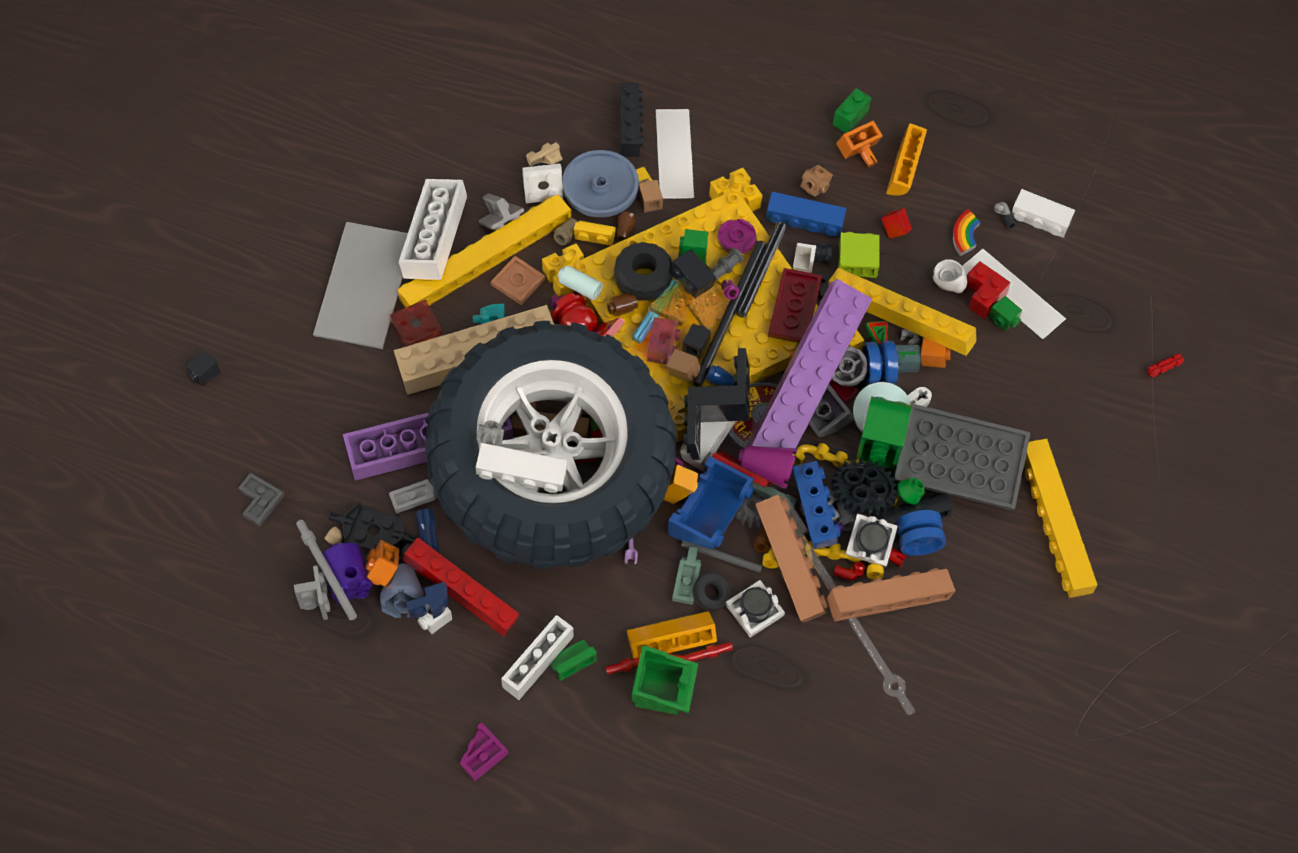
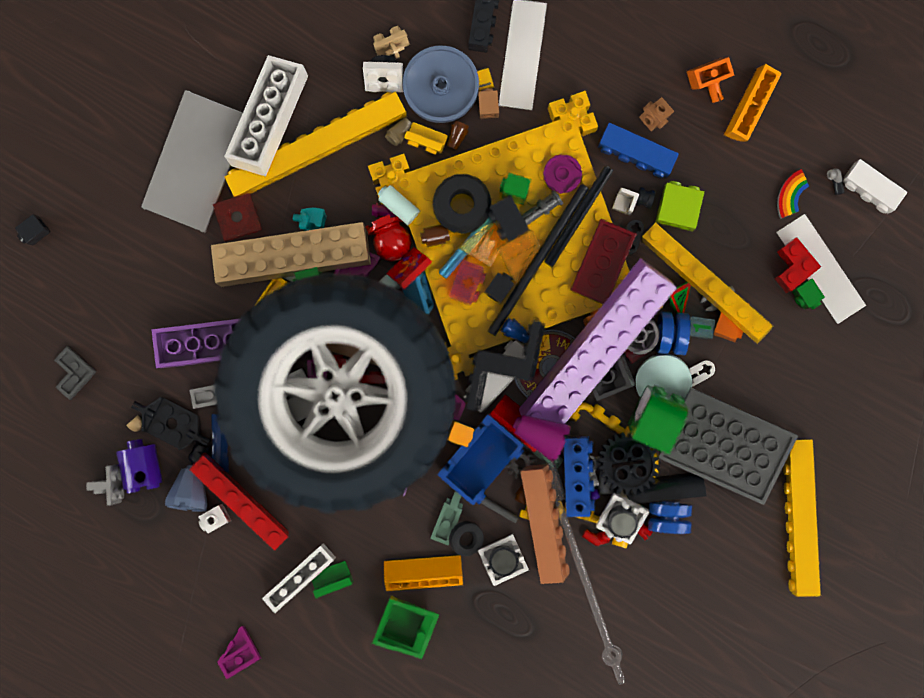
camera: 15 degrees right, 25 degrees up
(309, 539) = (107, 434): light grey bar -> none
(382, 563) = (172, 467): orange brick -> none
(434, 601) = (212, 517): dark blue brick -> none
(490, 433) = (267, 407): light grey gear -> none
(499, 211) = (336, 105): light grey bracket -> none
(517, 280) = (344, 178): nougat tile -> none
(521, 467) = (293, 444): white brick -> none
(683, 366) = (481, 315): medium nougat brick -> none
(711, 651) = (455, 593): red bar -> none
(730, 290) = (543, 240): magenta pin -> none
(851, 111) = (710, 35): green brick -> none
(890, 594) = (628, 573): nougat brick -> none
(896, 223) = (725, 174): red panel -> none
(911, 490) = (670, 474): green cone -> none
(950, 276) = (764, 240): white hair -> none

